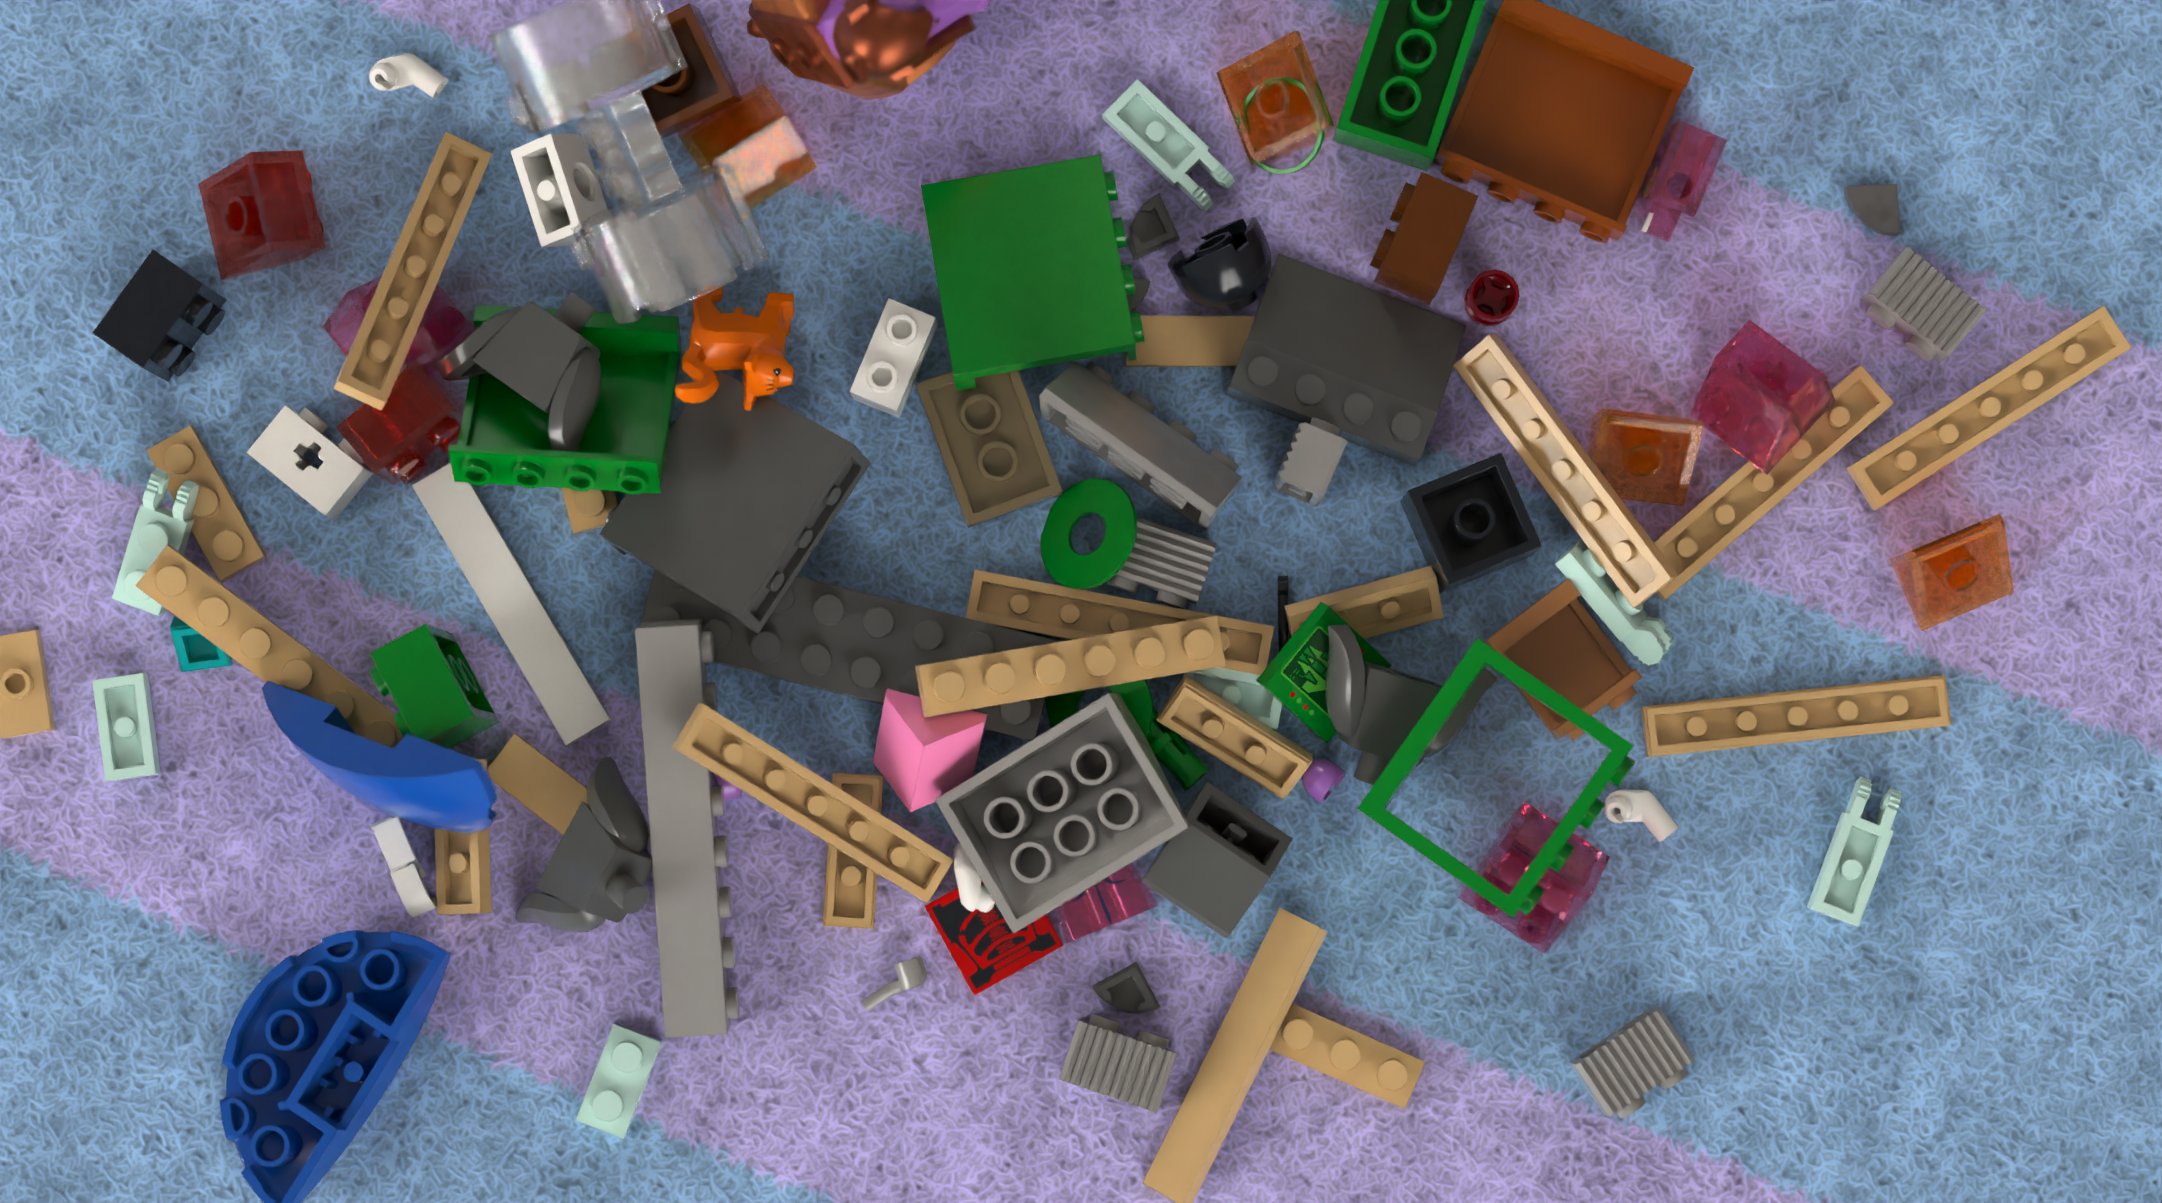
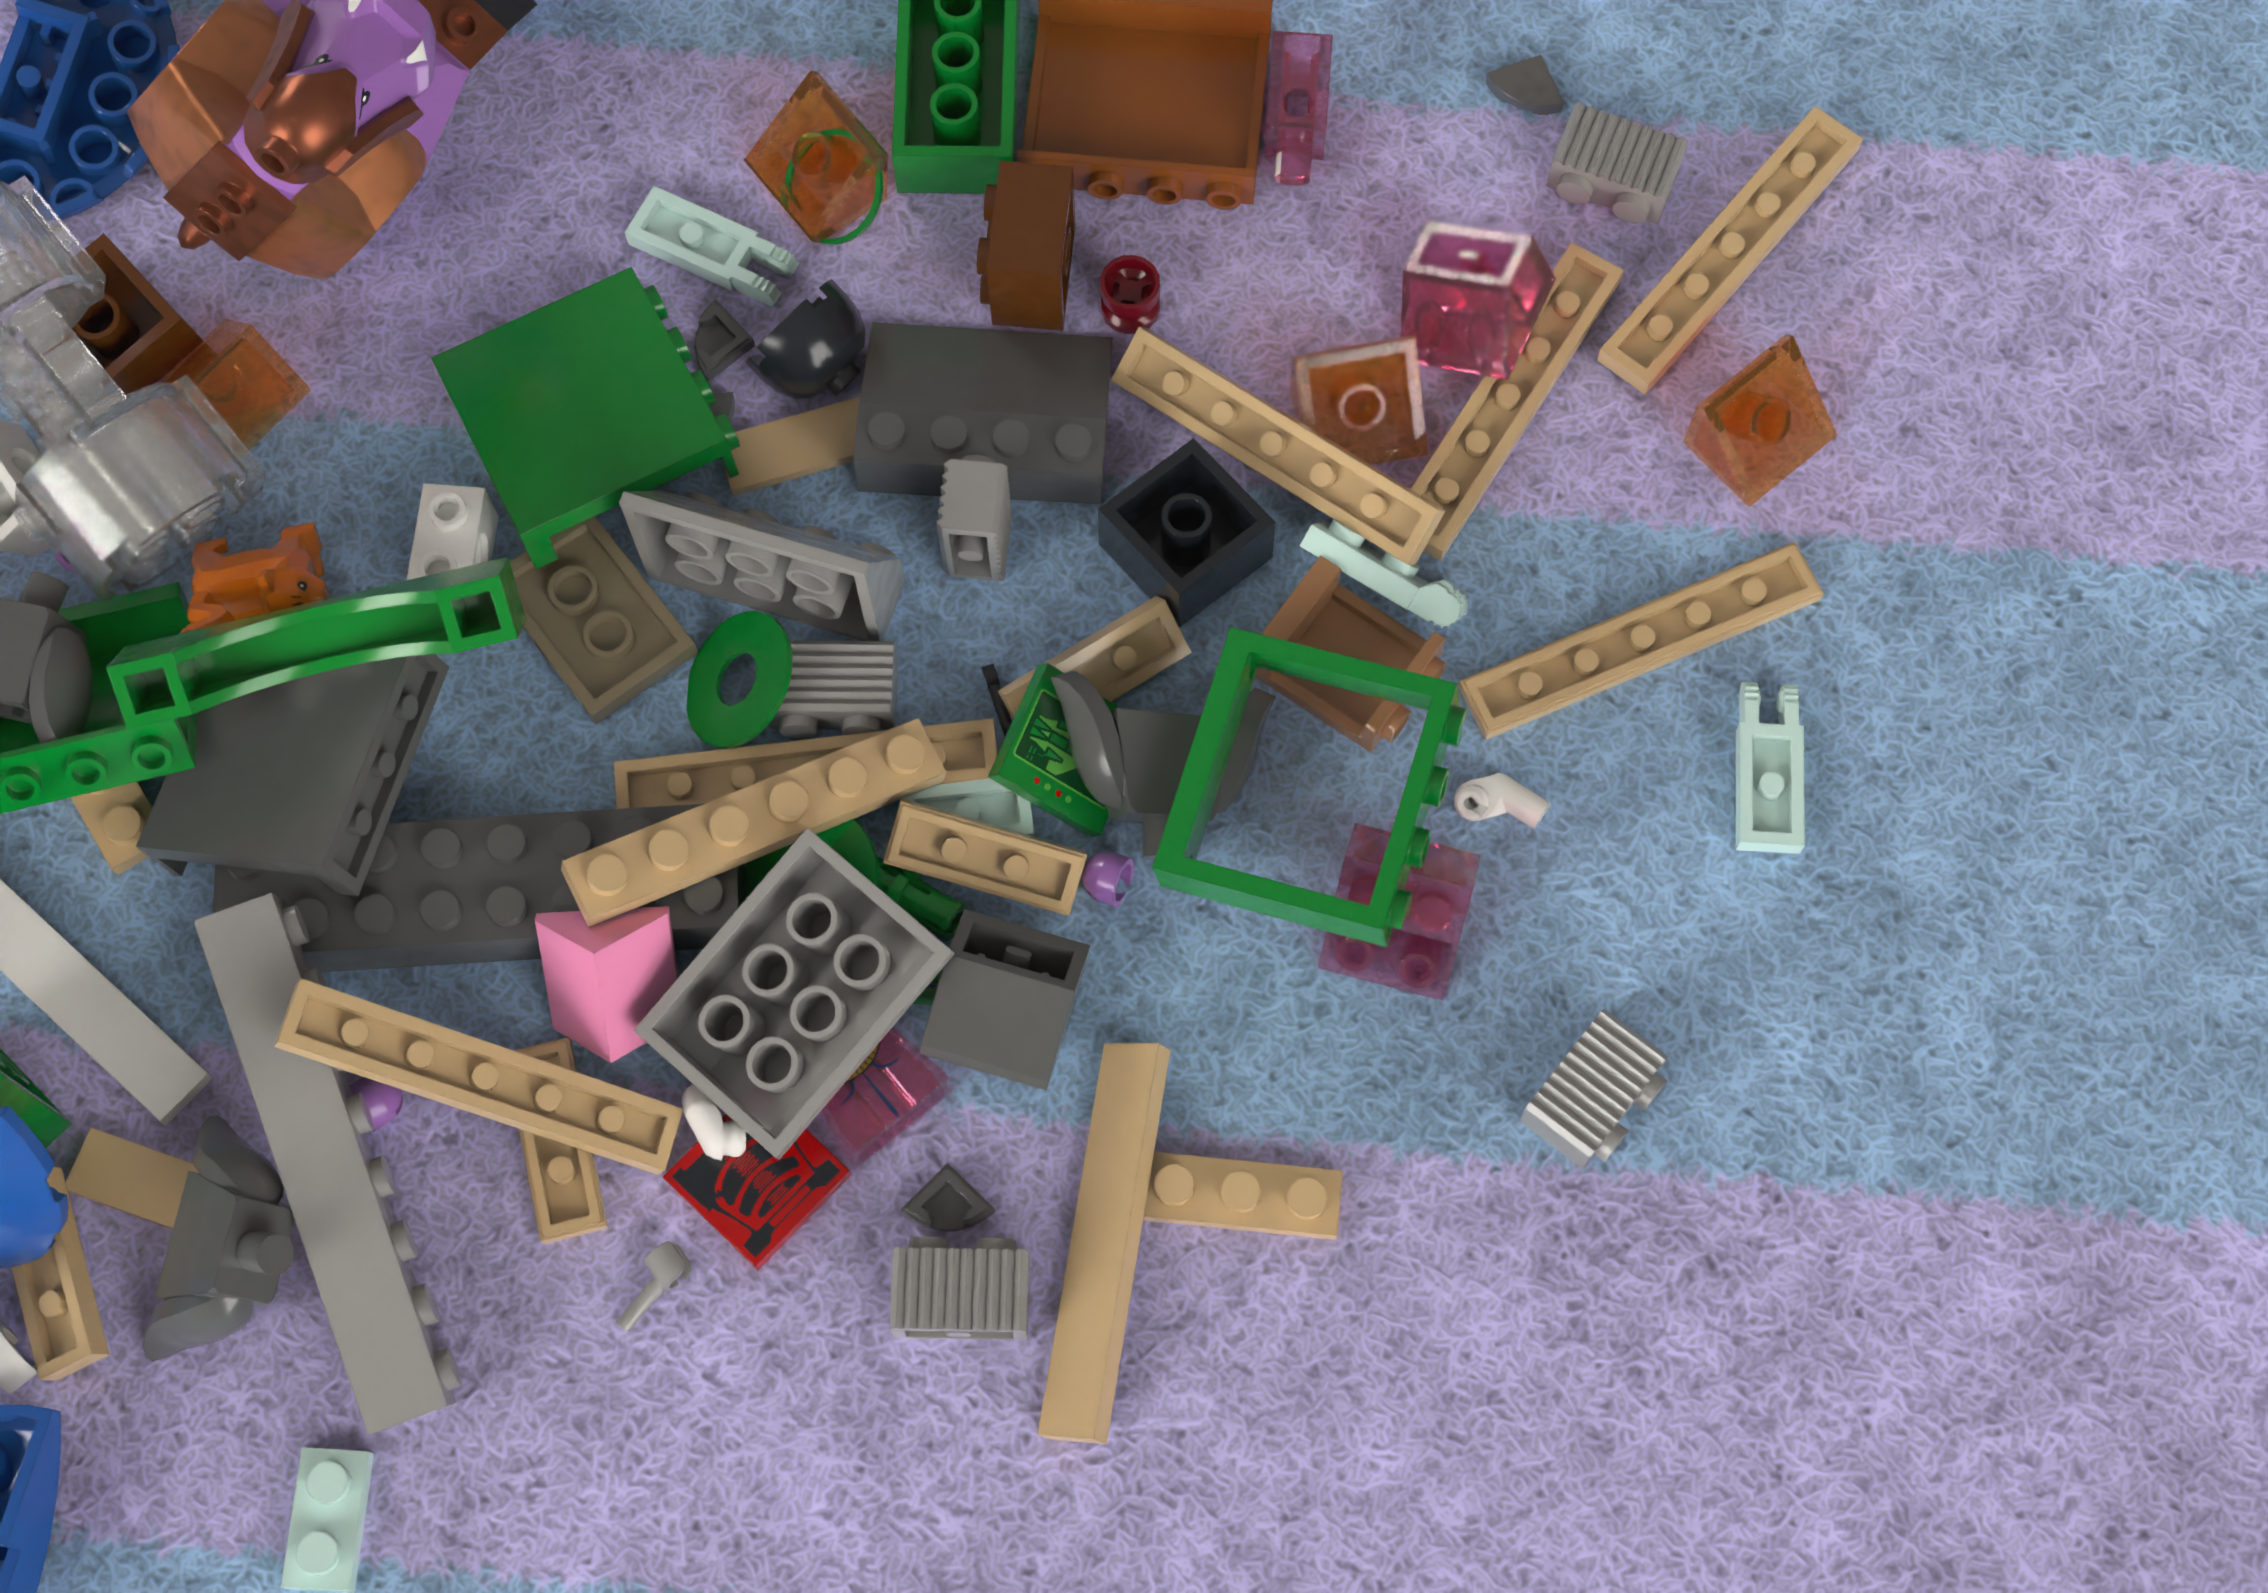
camera: 15 degrees left, 15 degrees down
(690, 429) = (231, 659): none -> green arch

